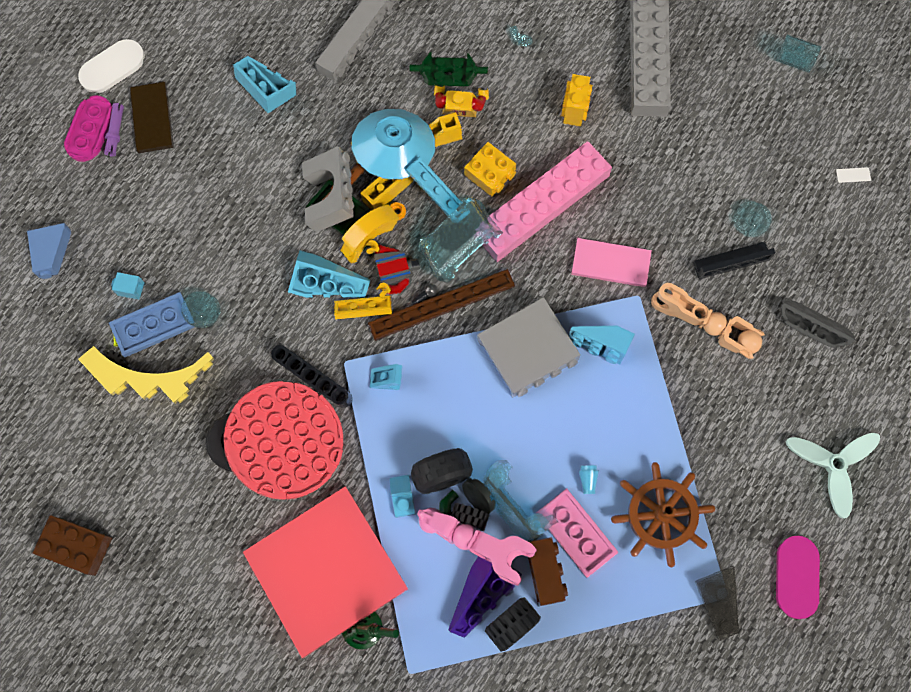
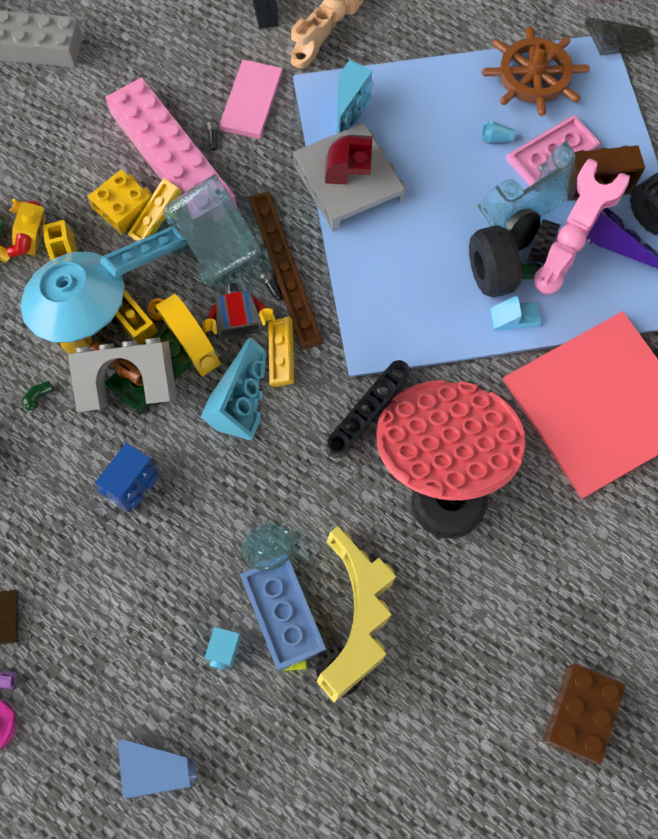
camera: 90 degrees left, 5 degrees down
(248, 204) = (127, 478): none -> blue brick
(321, 132) = (34, 392): none -> dark green arm
(386, 377) = (375, 321): medium azure slope -> none
(486, 197) = (152, 214): none -> yellow tile
(533, 342) = (348, 156): none -> dark red brick
(576, 100) = (49, 105): yellow brick -> none
(576, 232) = (212, 128): none -> piece

